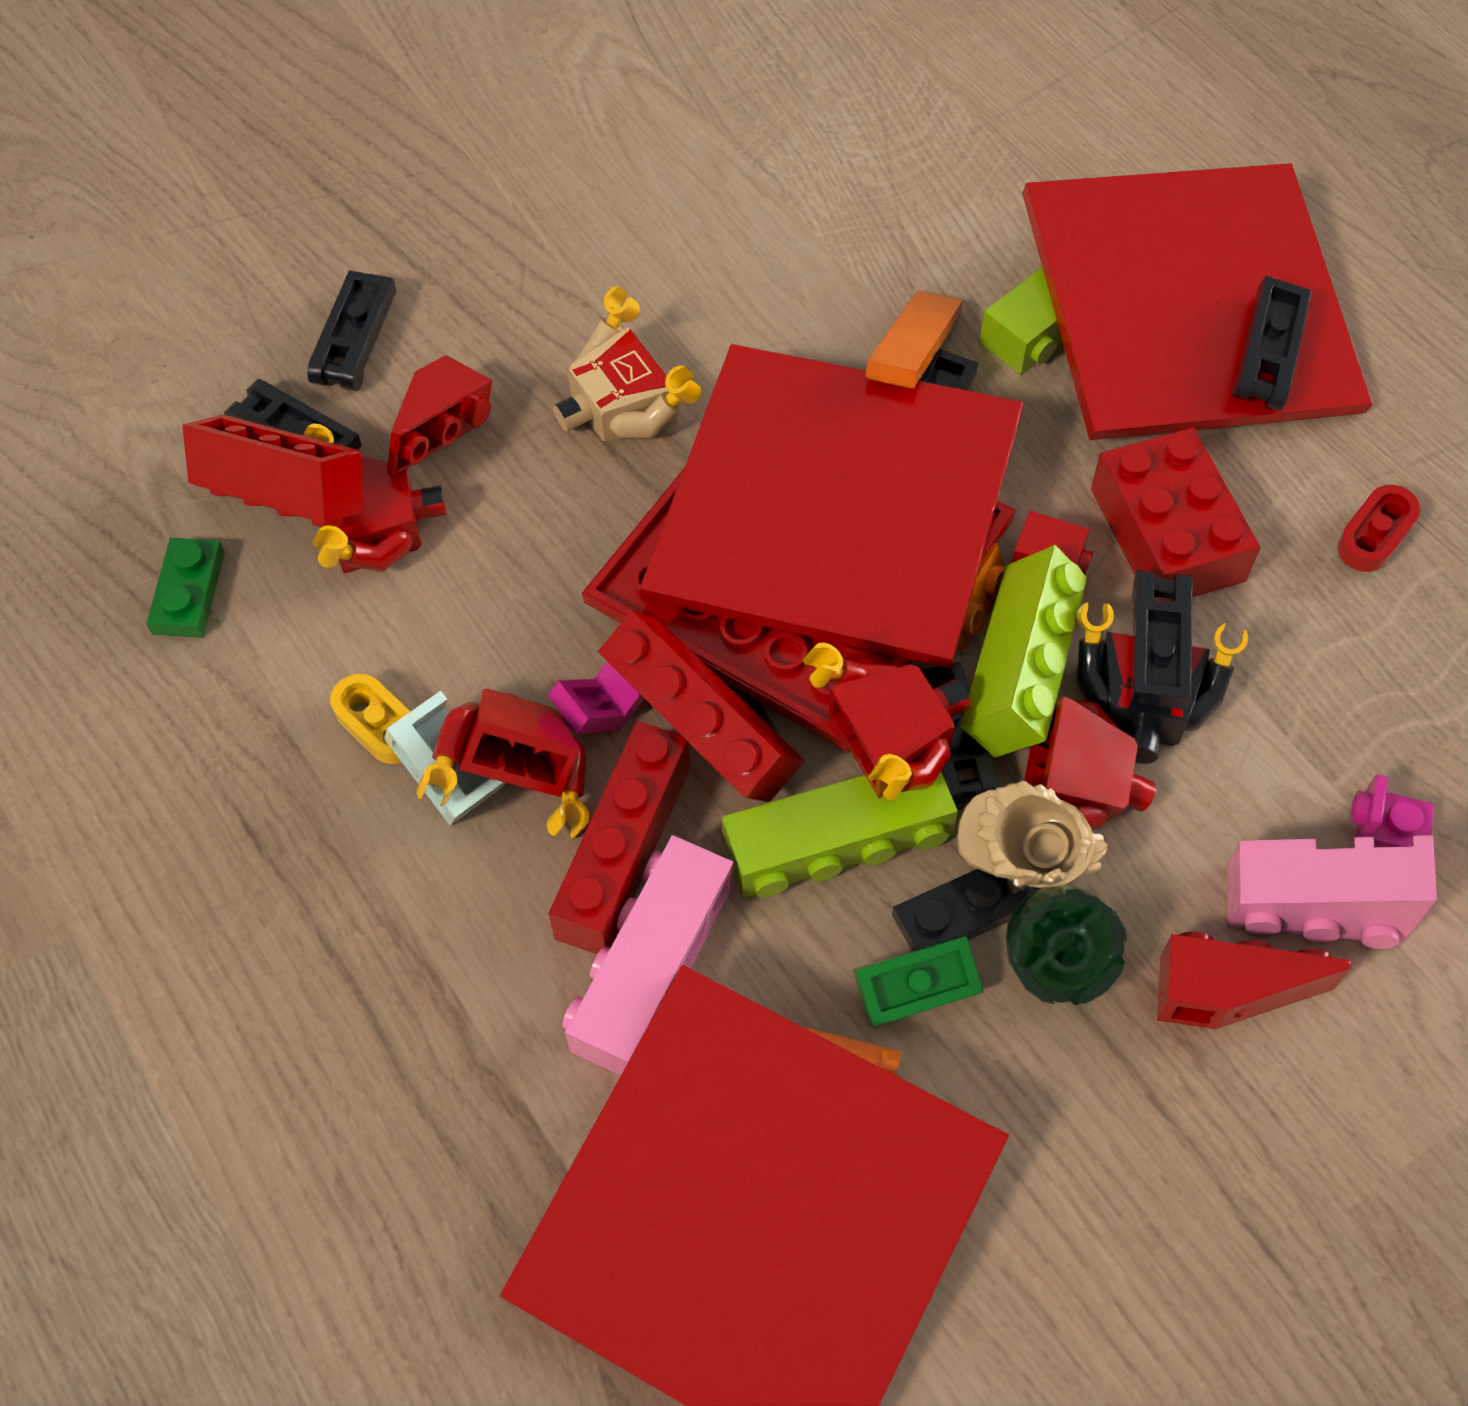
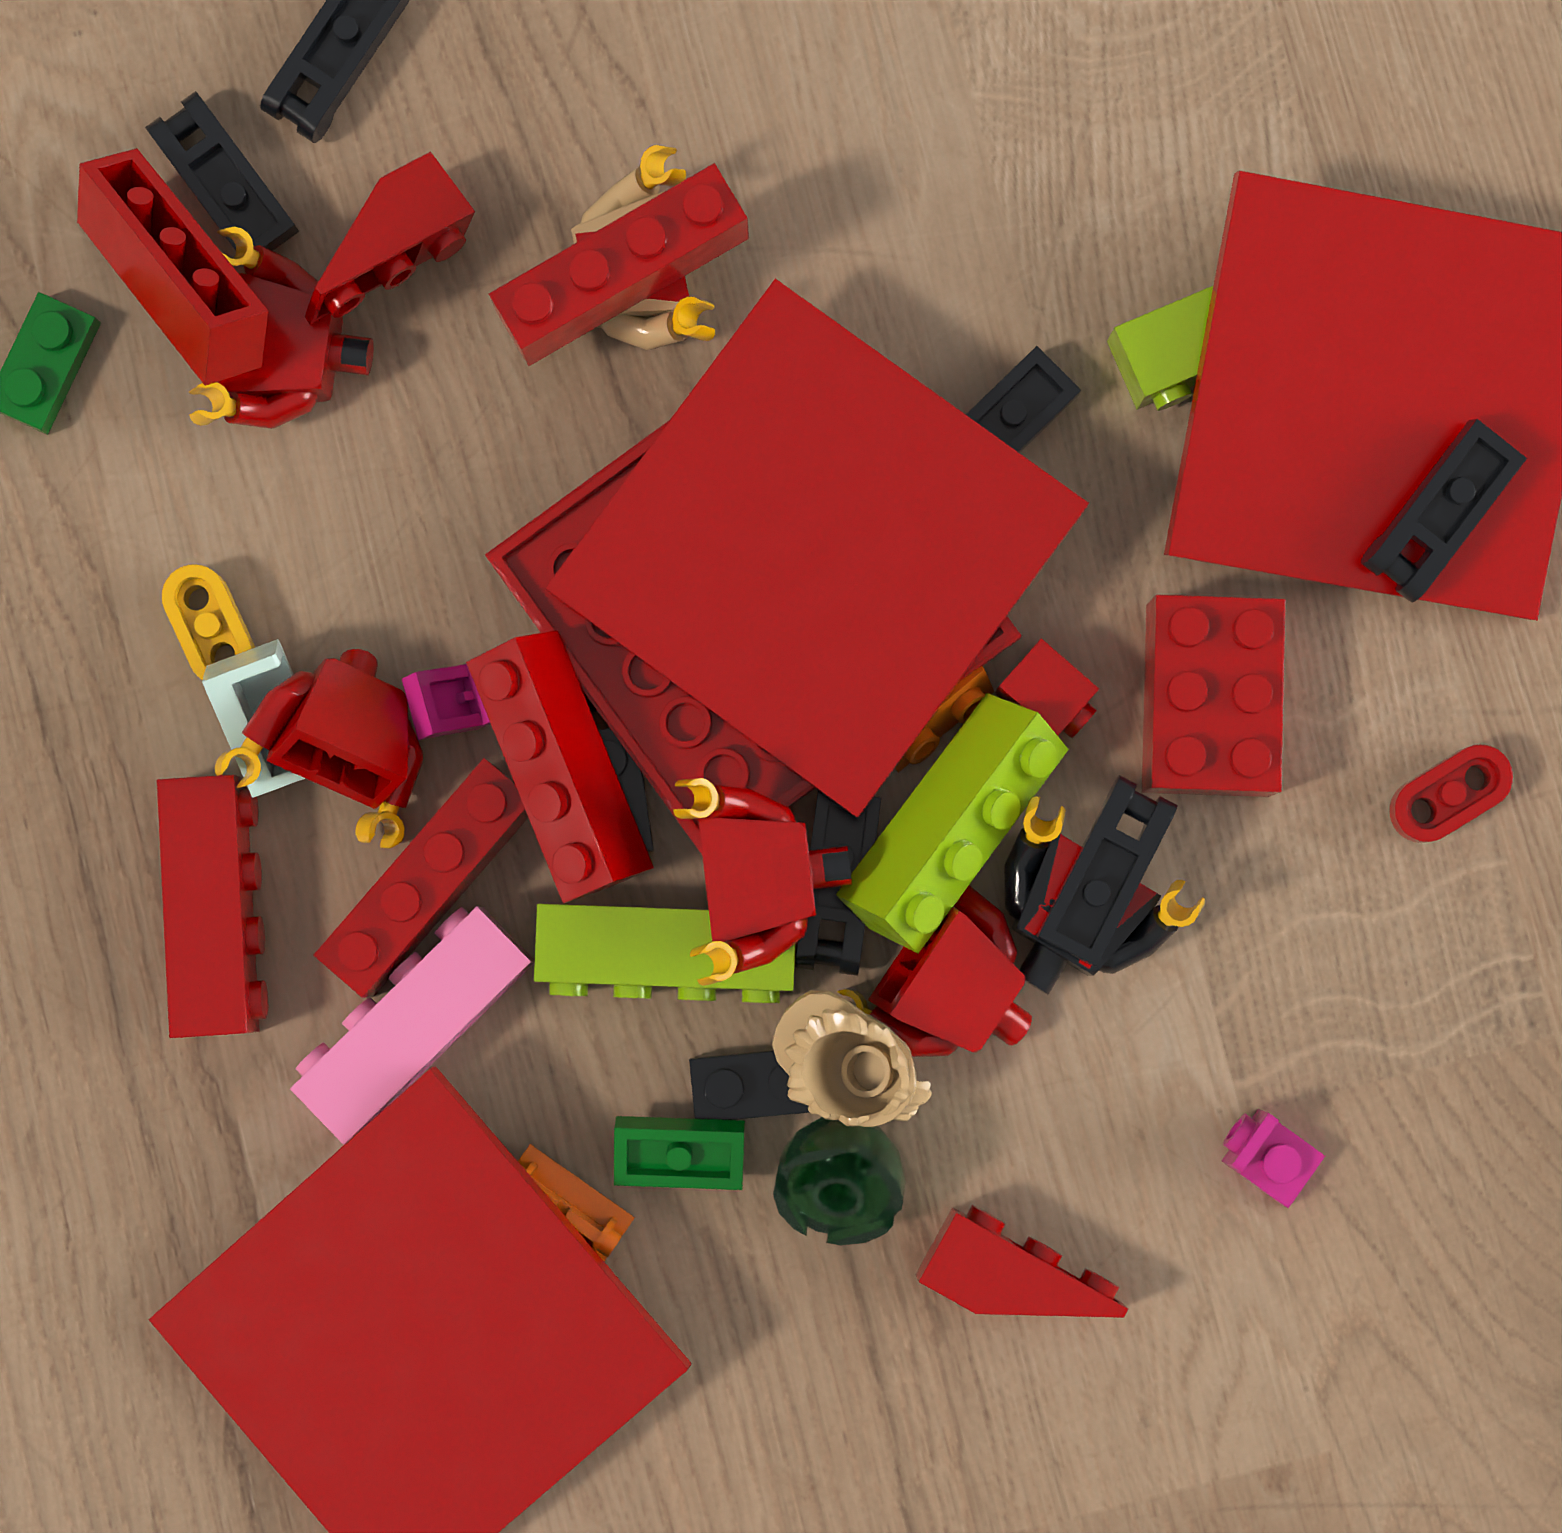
camera: 20 degrees right, 25 degrees up
(444, 925) = (210, 906): none -> red brick
(613, 365) = (621, 264): none -> red brick
(913, 339) = (1009, 341): orange tile -> none
(1331, 892) = (1150, 1220): bright pink wedge -> none

